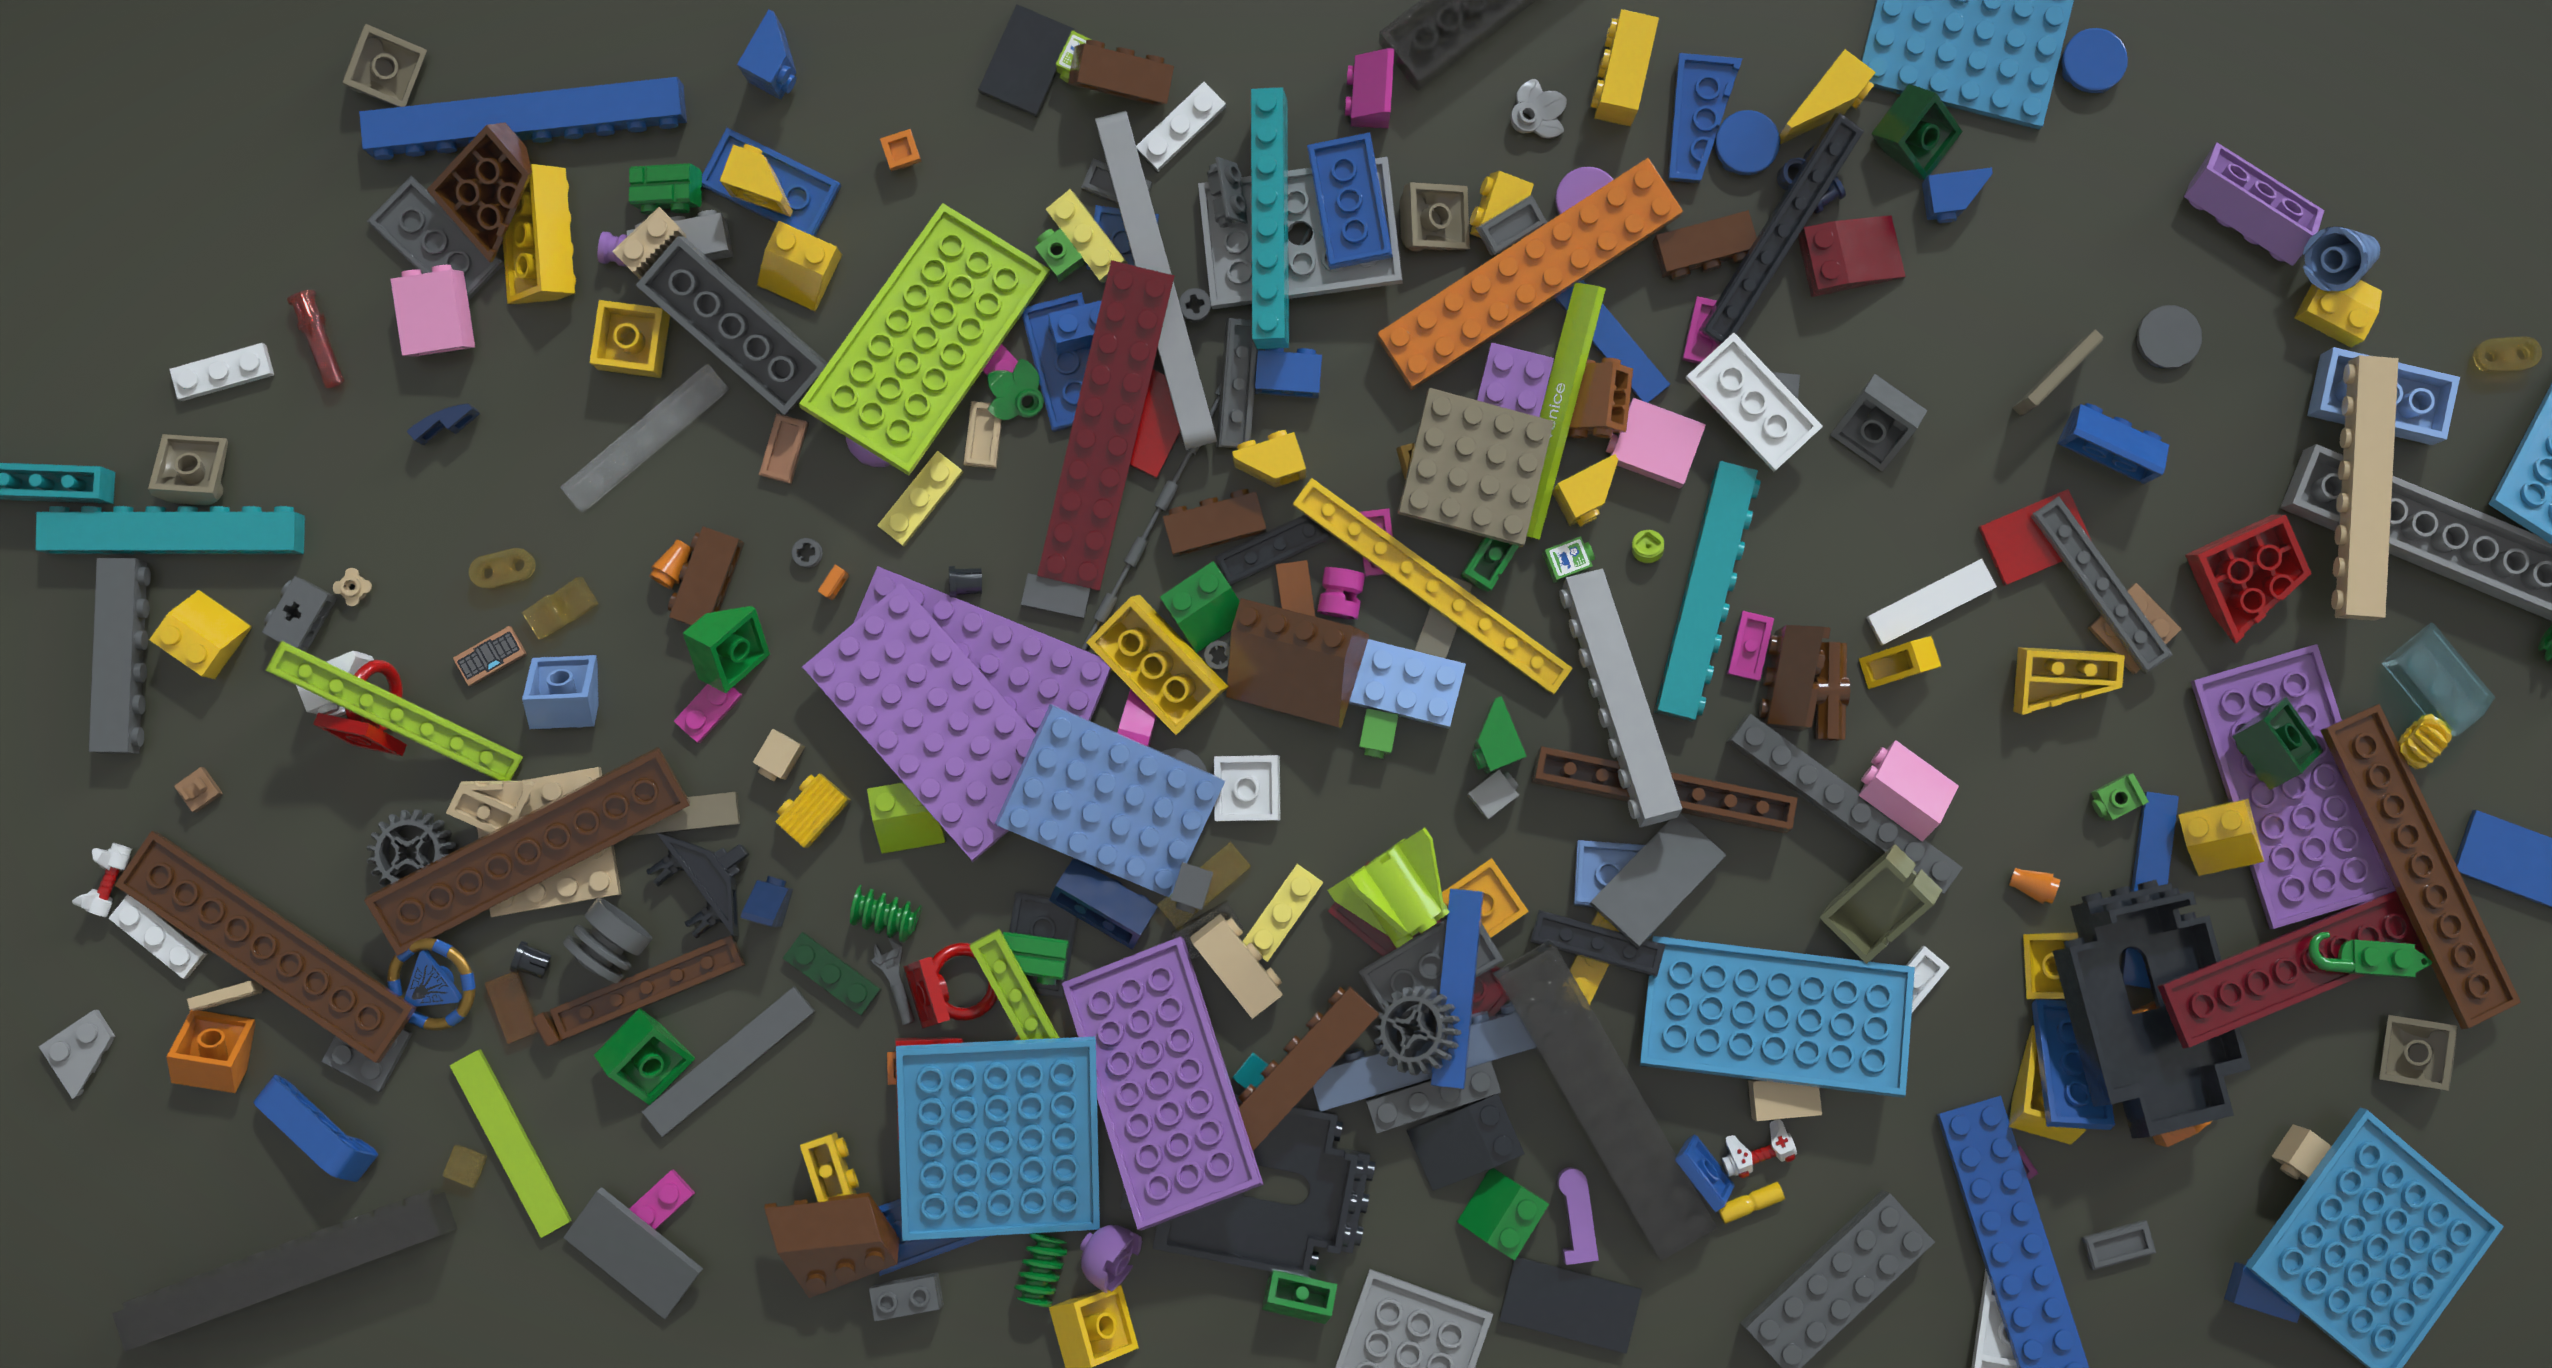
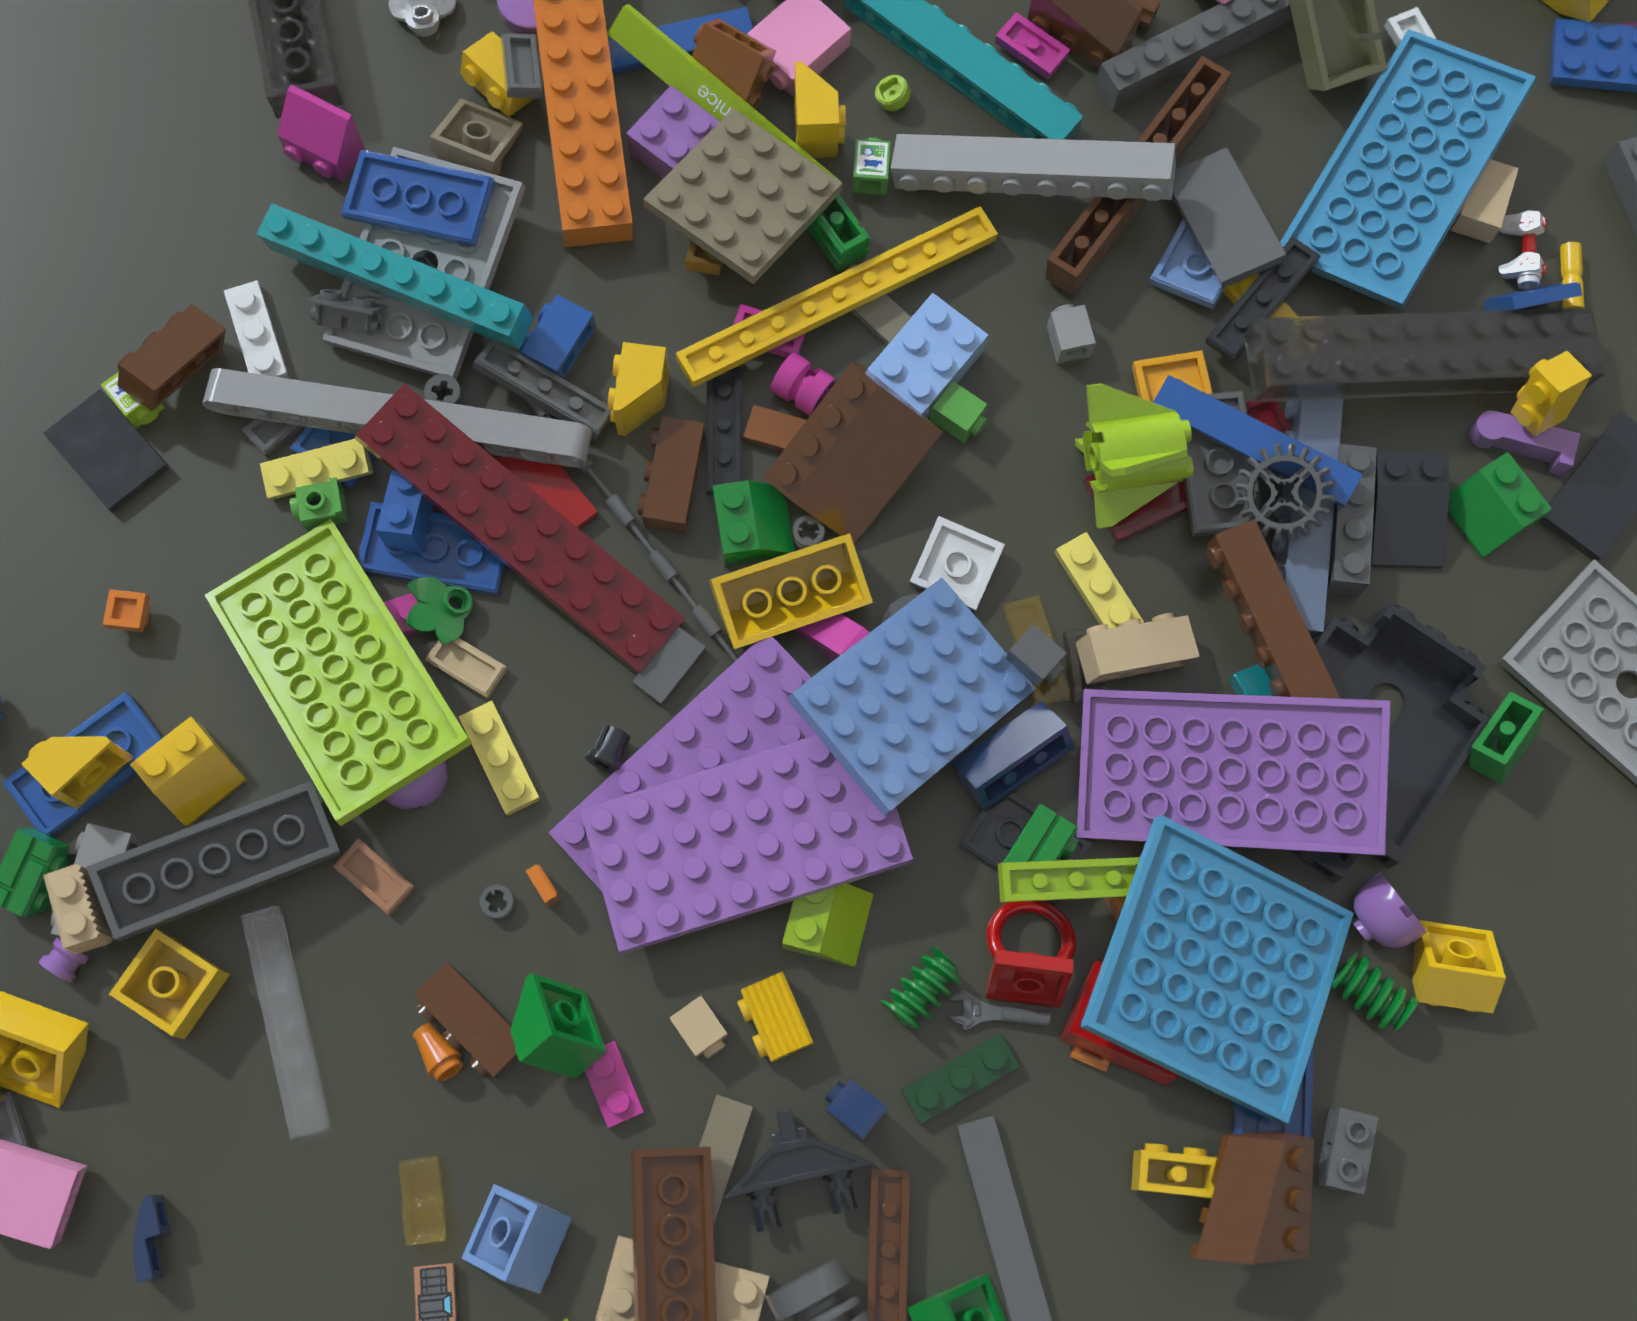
camera: 70 degrees left, 10 degrees down
(503, 568) = (347, 1245): clear yellow plate -> none
(1497, 740) = (1018, 299): green slope -> none
(1612, 1218) = (1550, 393): none -> yellow brick

